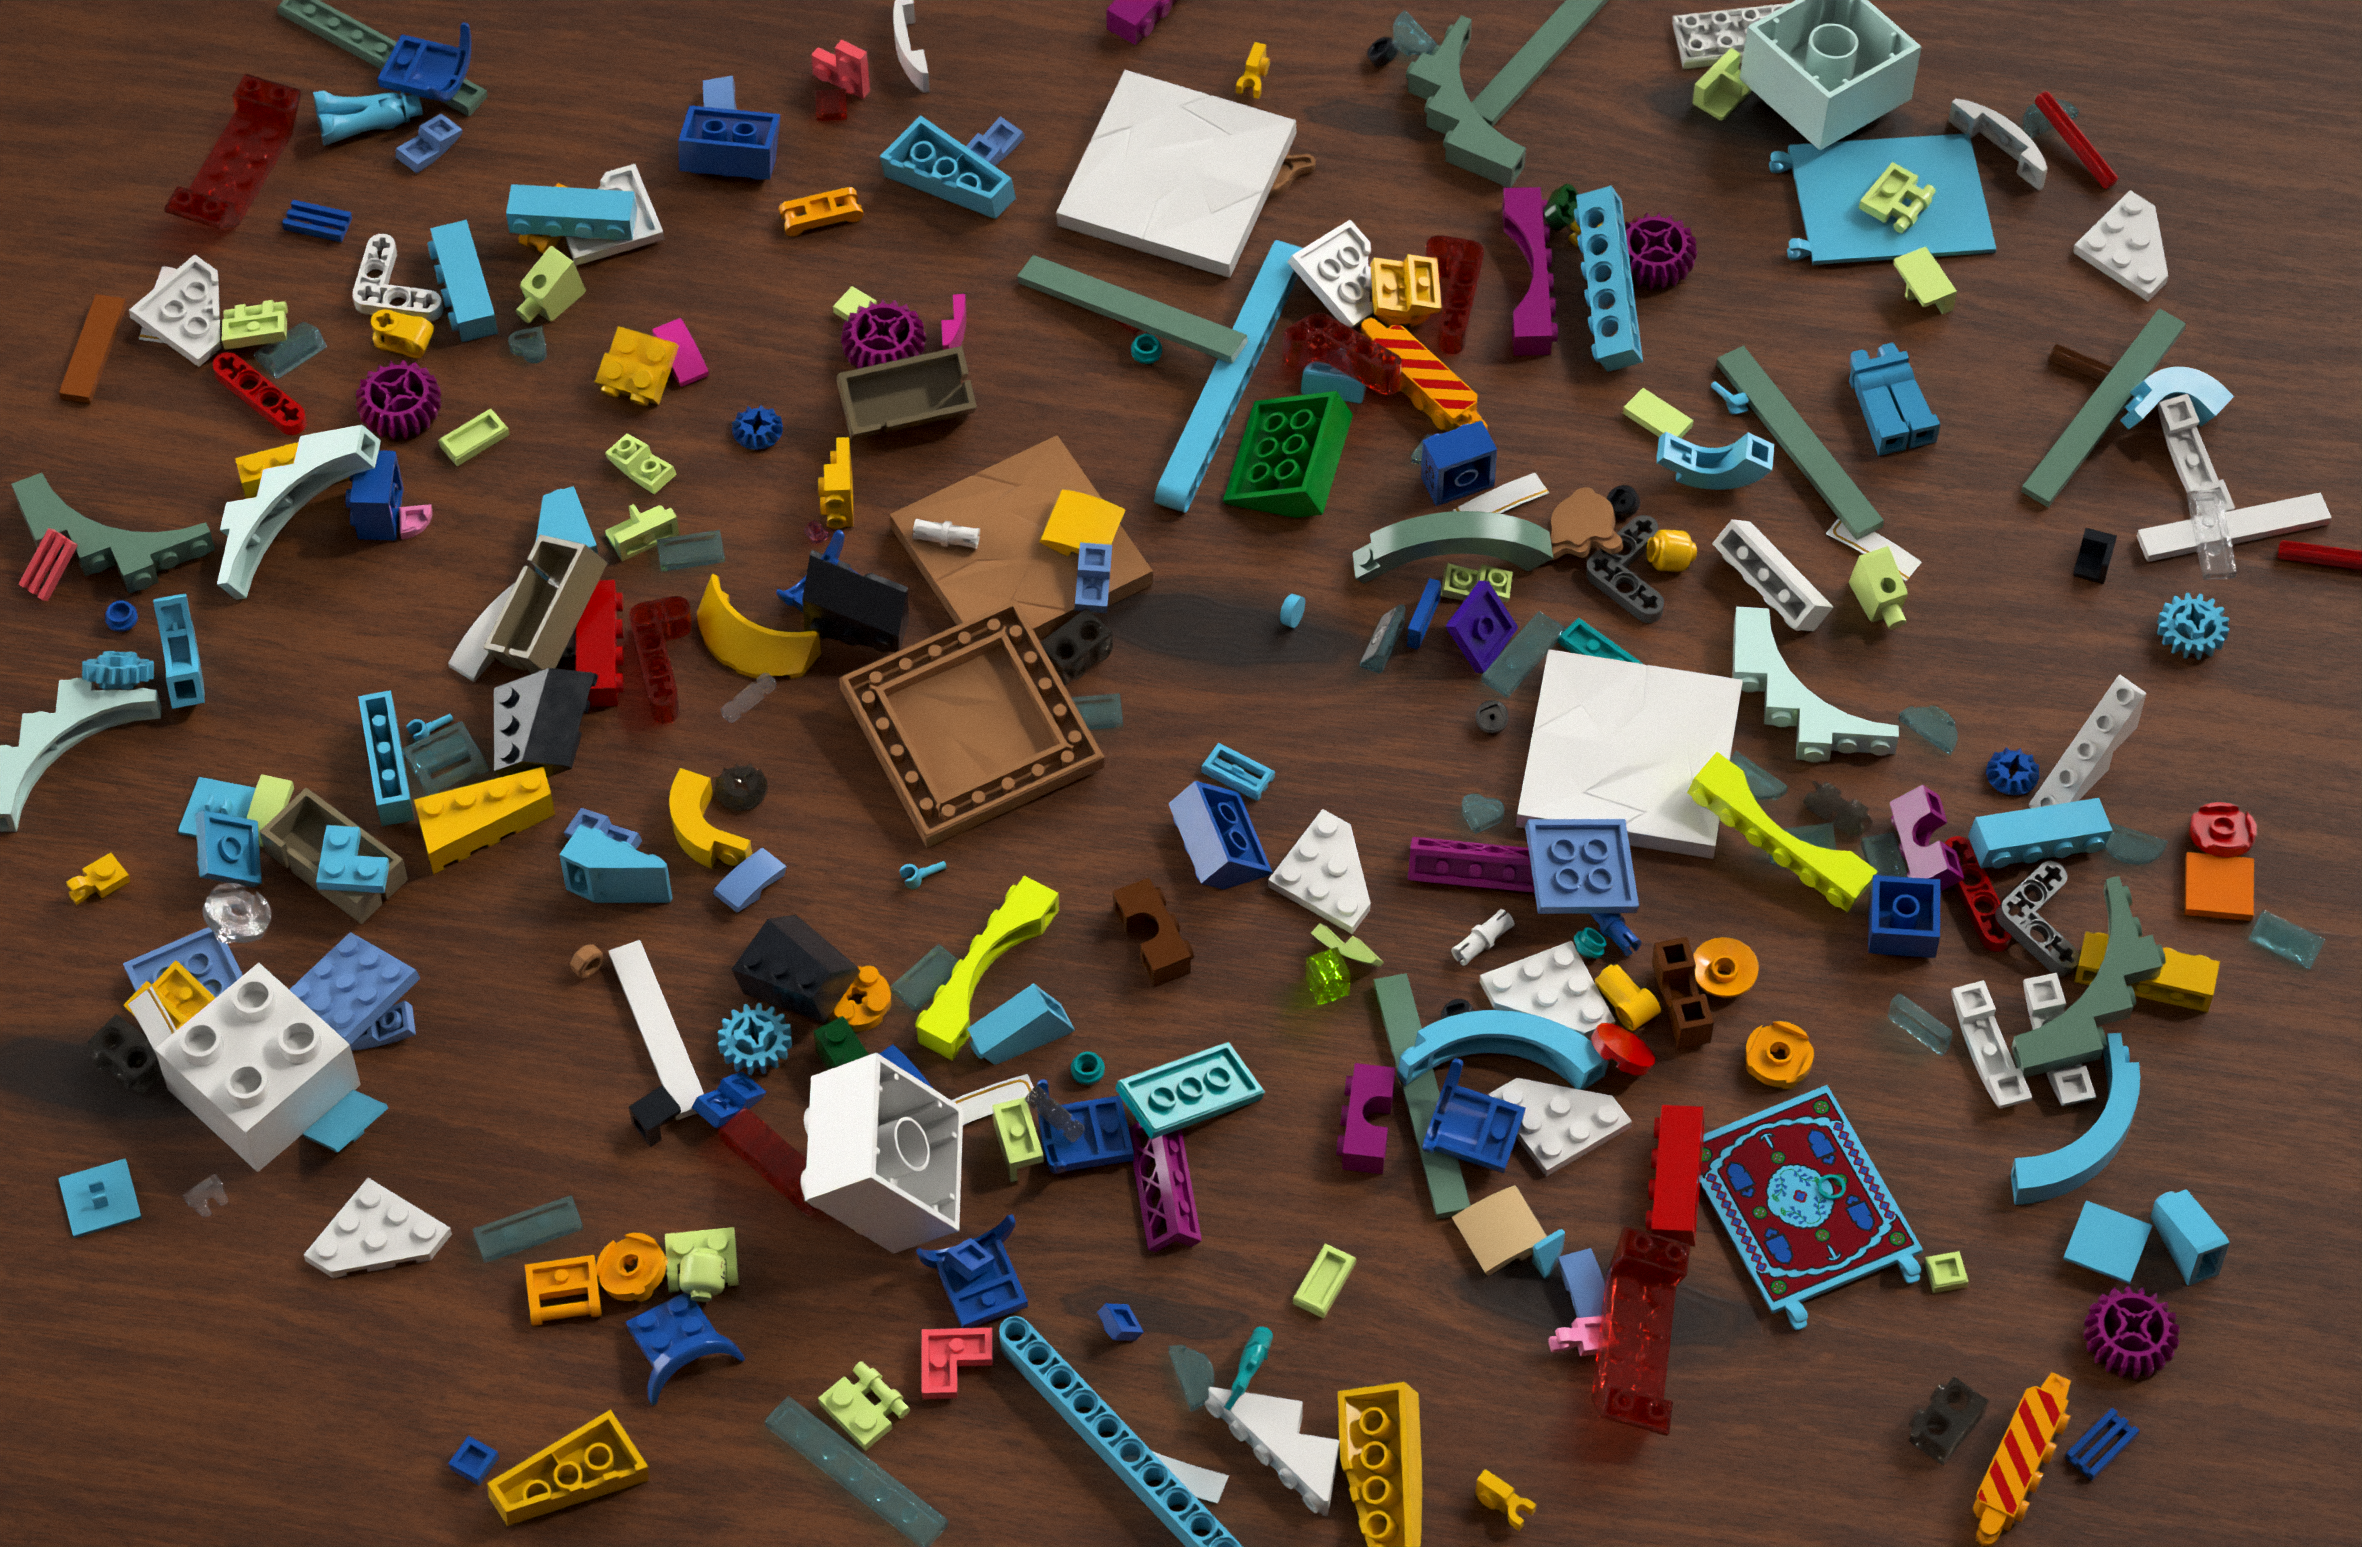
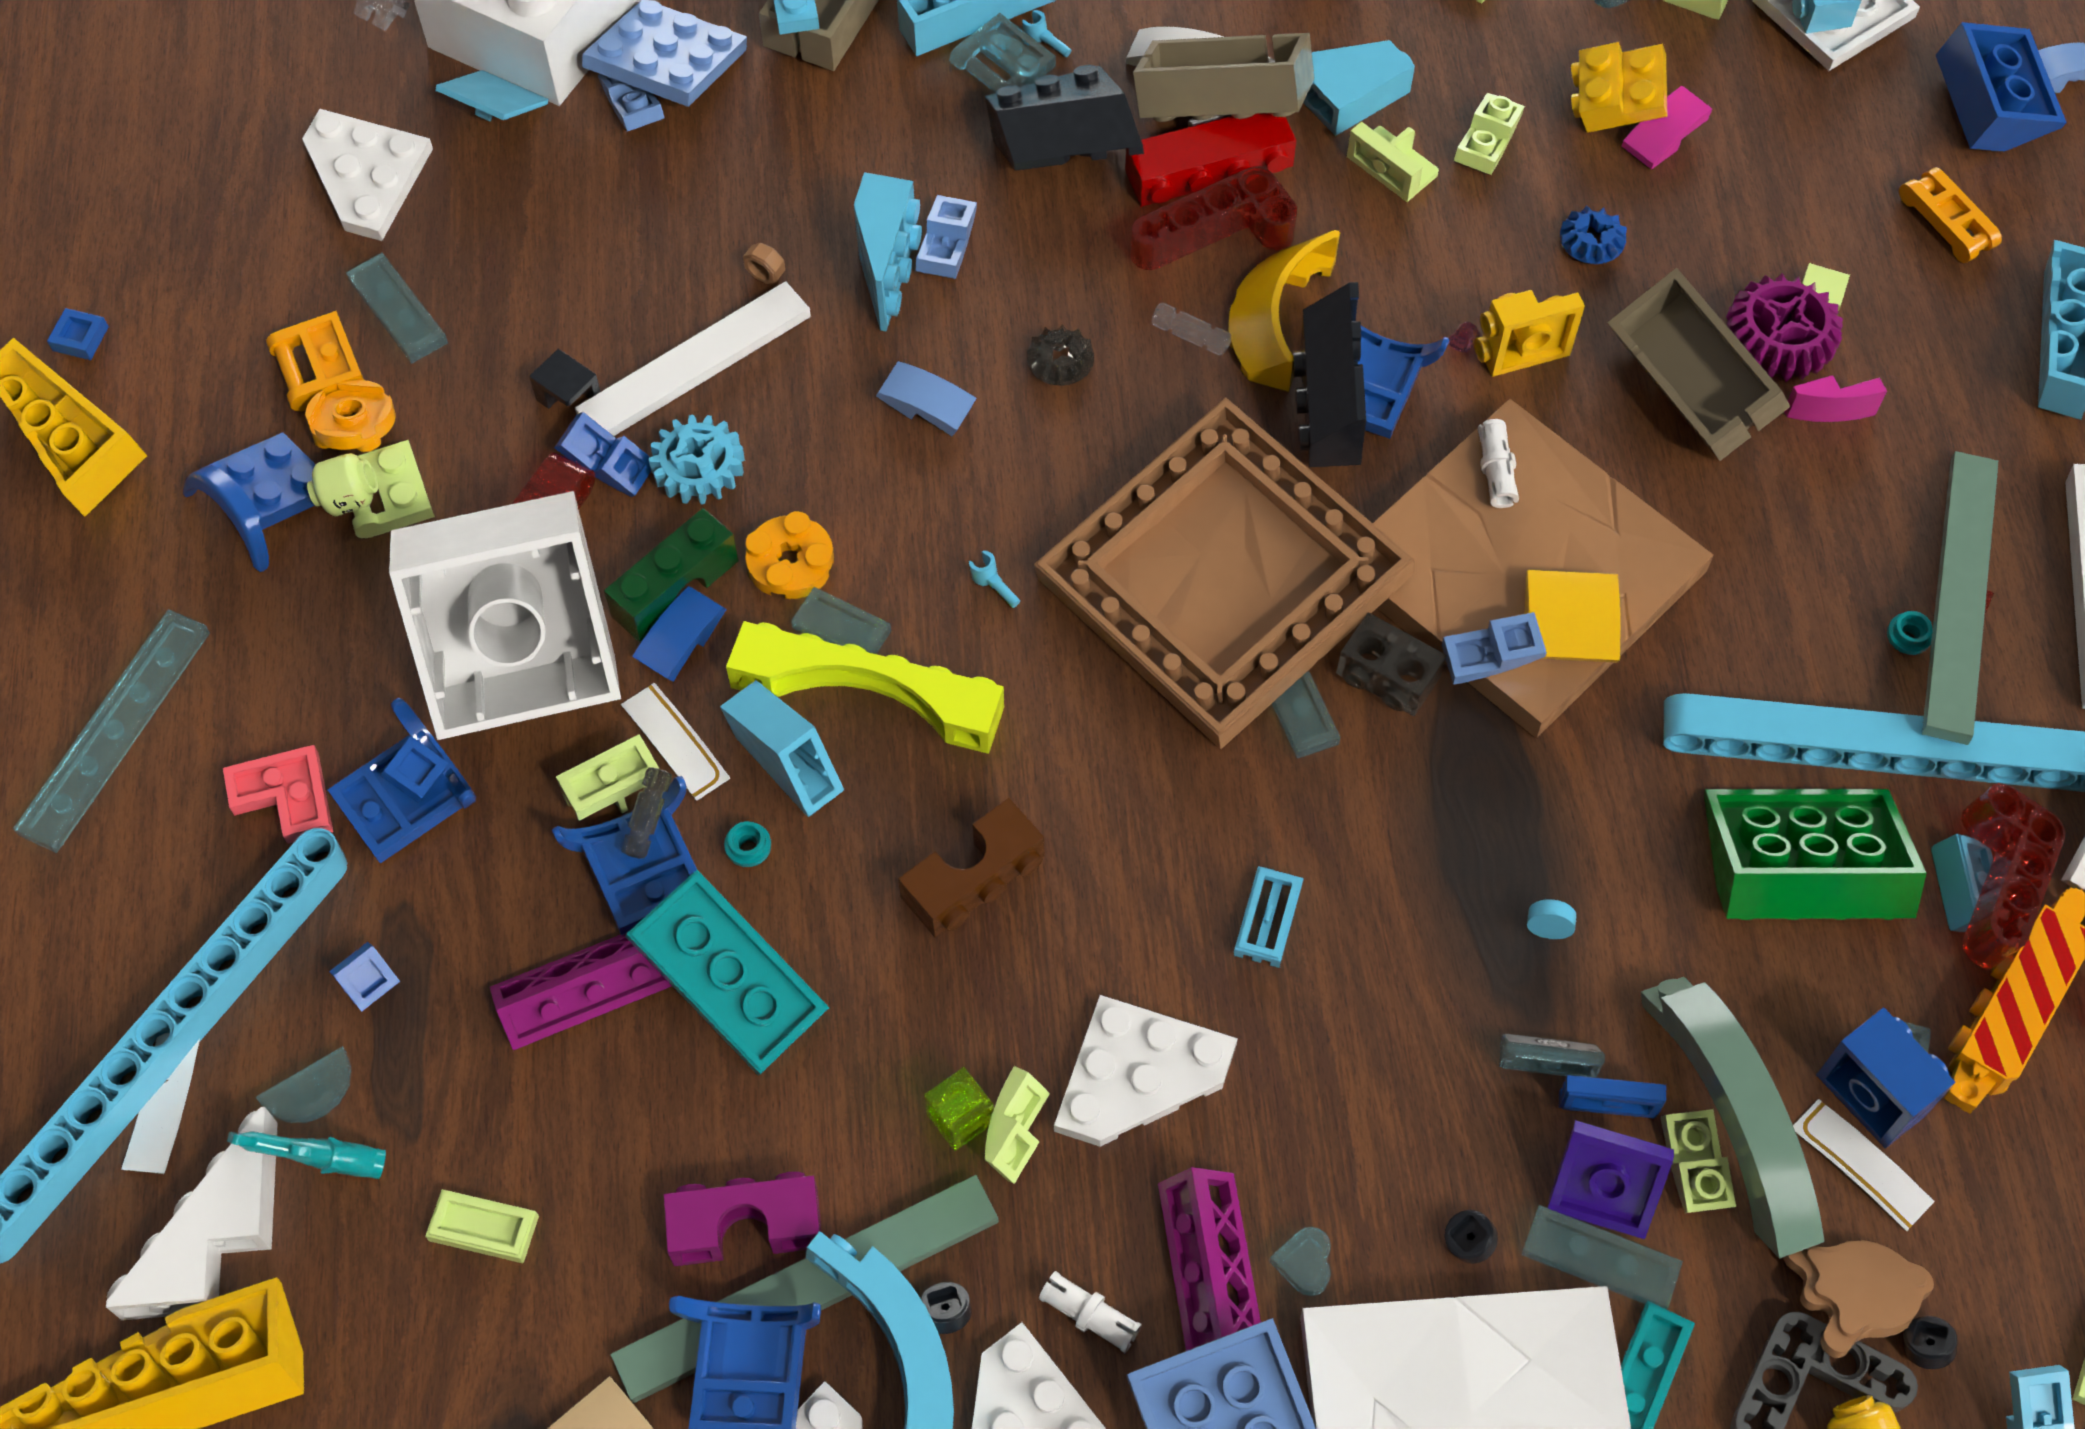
camera: 75 degrees right, 5 degrees up
(481, 814) = (927, 101): yellow wedge -> none
(690, 550) = (1385, 216): clear light blue tile -> none
(701, 841) = (986, 310): yellow arch -> none
(794, 968) = (803, 470): black wedge -> none
(855, 1413) = (199, 705): yellowish green plate -> none
(1219, 836) = (1149, 916): blue slope -> none

